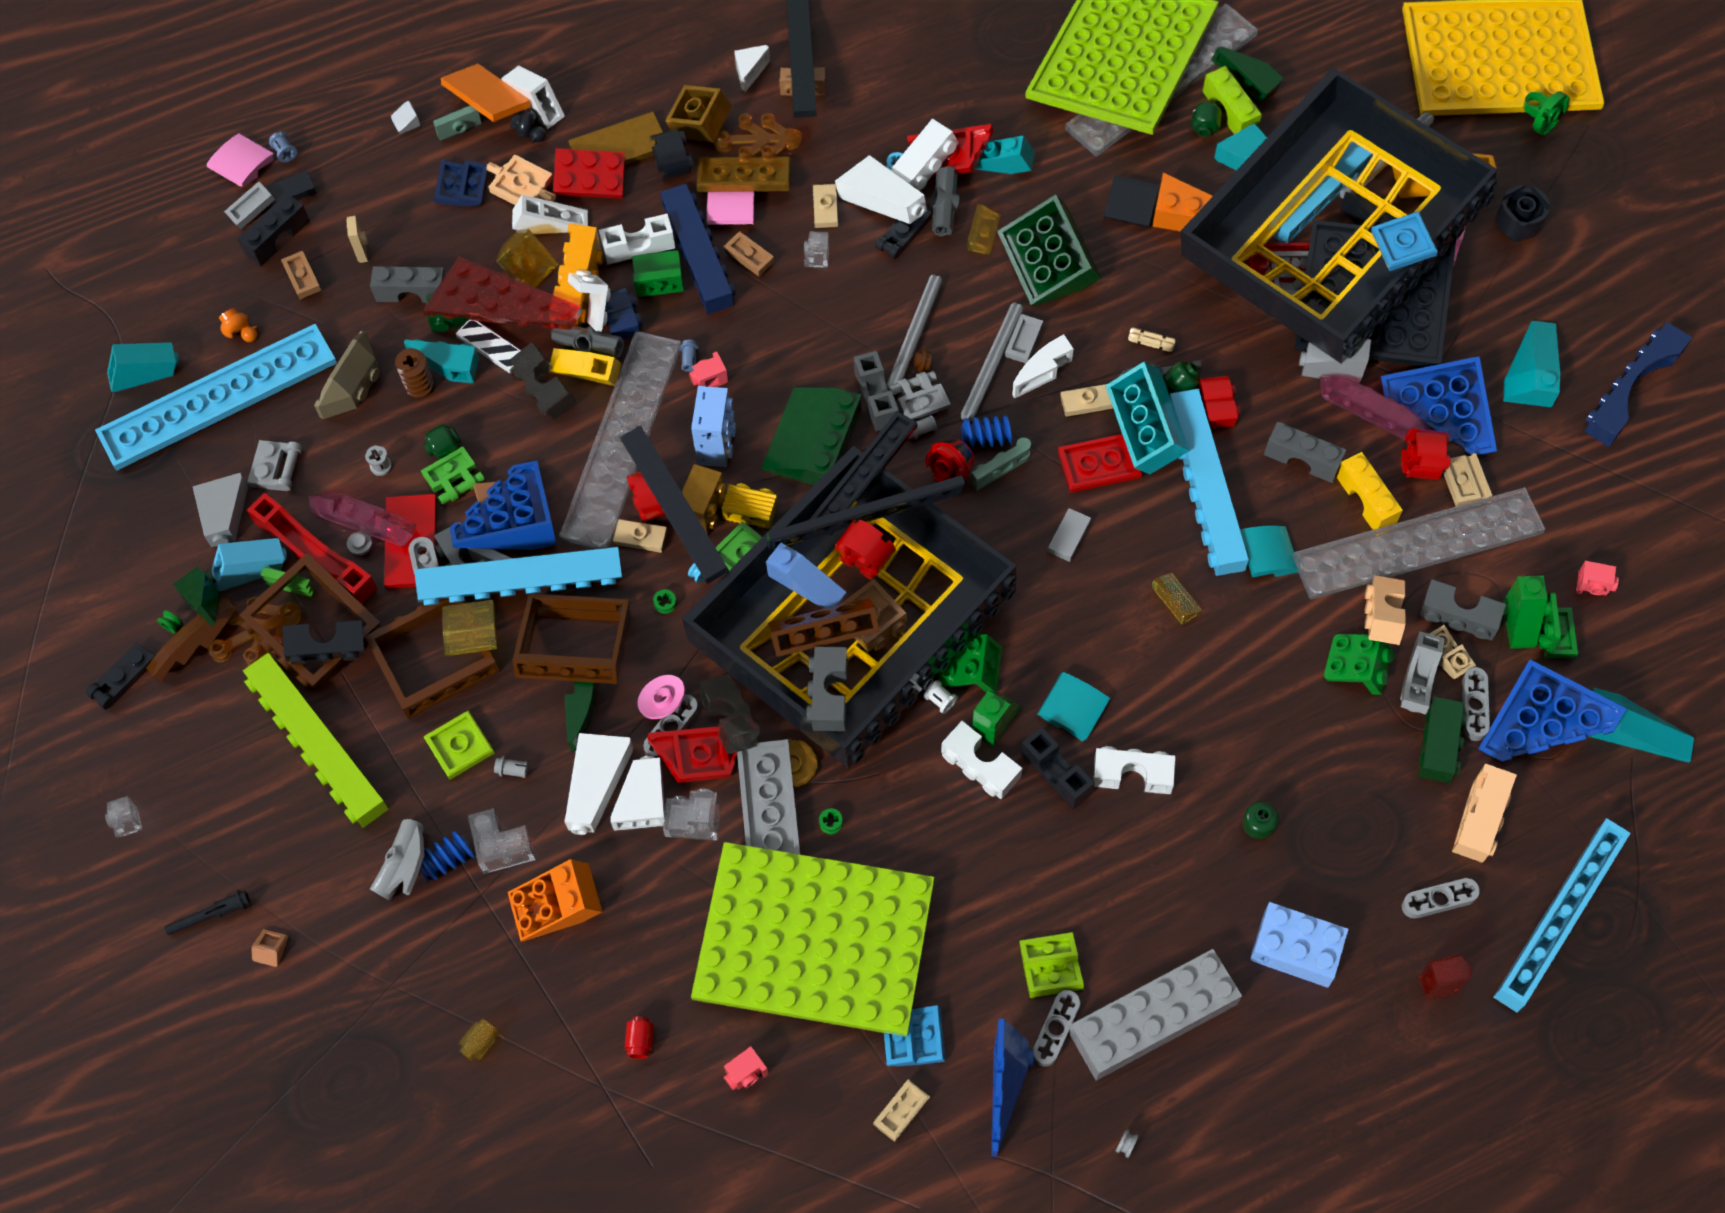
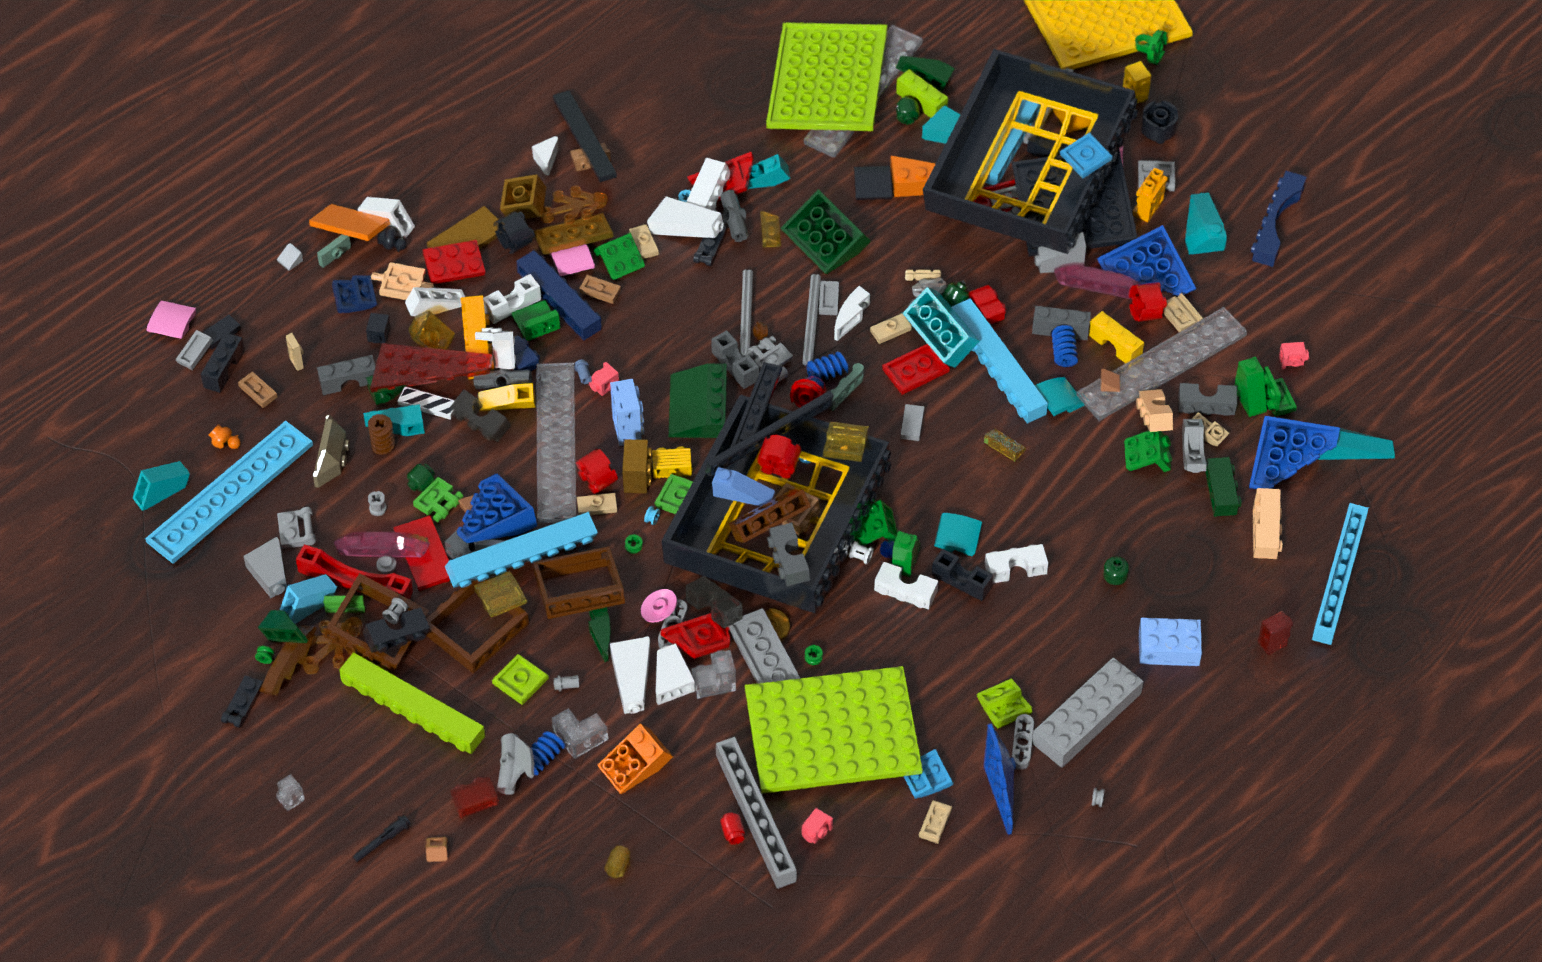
camera: 20 degrees left, 10 degrees down
(282, 146) = (202, 301): sand blue bush -> none
(332, 614) = (395, 610): none -> light grey bush
(338, 891) = (474, 796): none -> clear red brick
(425, 560) = (439, 563): light grey plate -> none
(468, 234) = (378, 328): none -> black brick
(673, 1028) = (756, 812): none -> light grey brick
(674, 504) = (622, 468): black tile -> none
(788, 218) = (620, 256): none -> green bracket
(816, 250) = (651, 273): clear brick -> none
(960, 550) = (845, 441): none -> clear yellow slope
(974, 699) = (887, 549): none -> clear blue plate
(1156, 356) = (937, 284): none -> light grey wheel
(1298, 485) = (1064, 346): none -> blue piece
(1340, 551) = (1109, 381): none -> nougat slope
(1456, 886) = (1251, 595): light grey beam -> none
(1477, 309) = (1150, 195): none -> light orange hips
(1481, 694) = (1238, 450): light grey beam -> none
(1495, 277) = (1168, 168): none -> light grey plate
(1510, 153) = (1138, 79): none -> yellow brick

